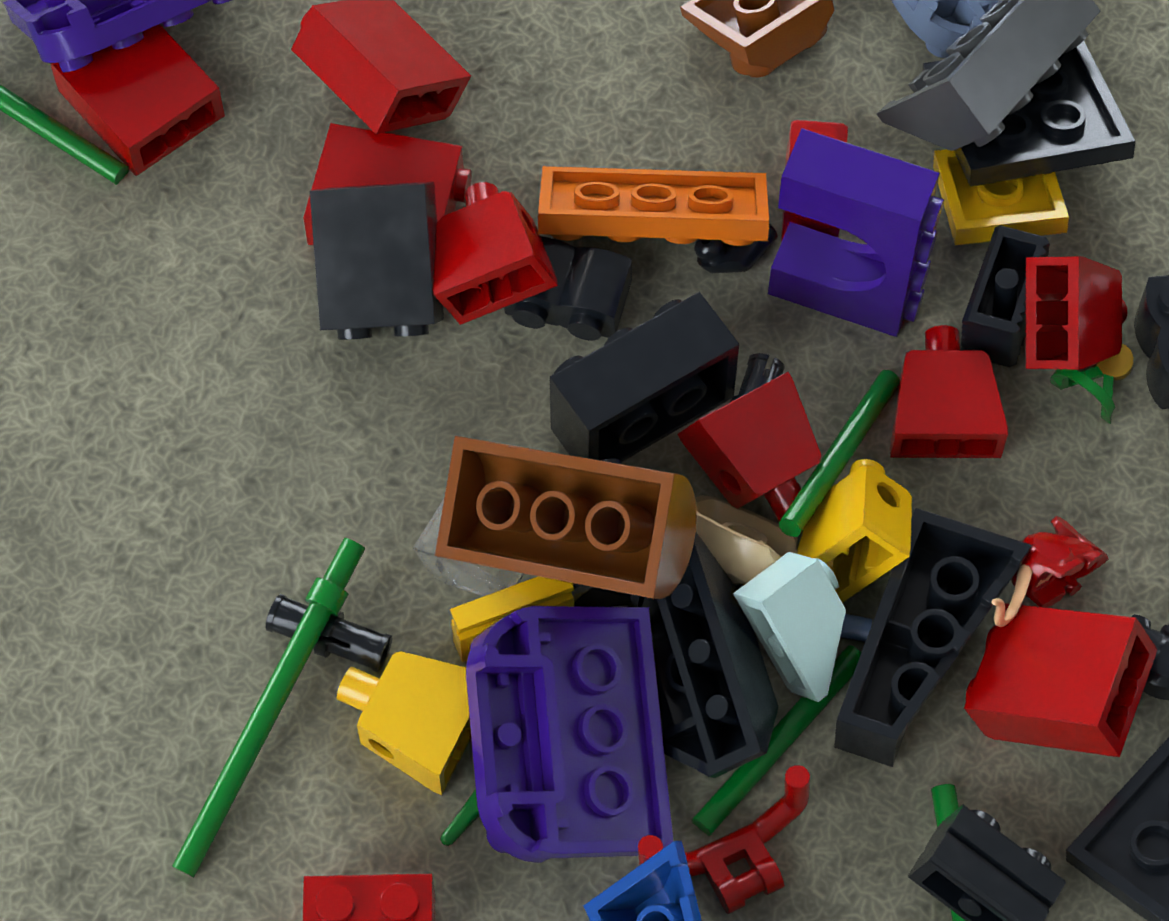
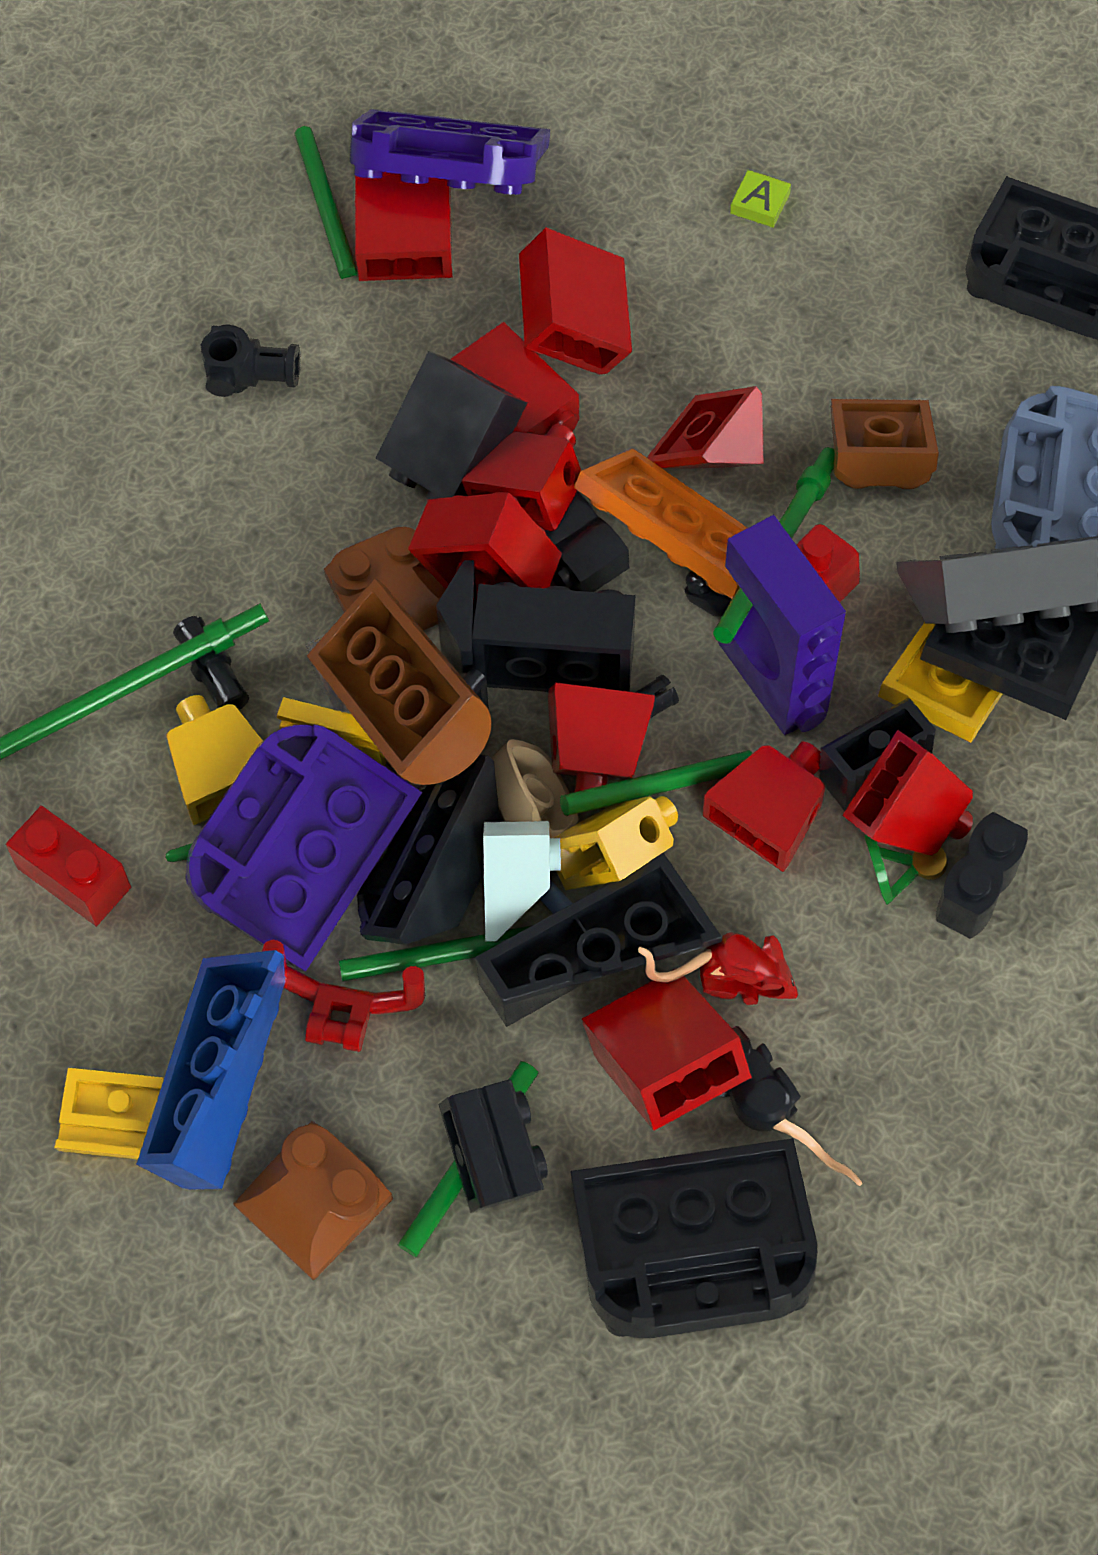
camera: 40 degrees right, 0 degrees up
(107, 320) = (245, 361): none -> black connector
(415, 436) = (391, 563): none -> dark orange slope
(509, 343) = (490, 532): none -> red brick
(547, 420) = (457, 616): none -> black slope
(606, 102) = (715, 432): none -> red slope
(734, 99) = (810, 488): none -> green bar

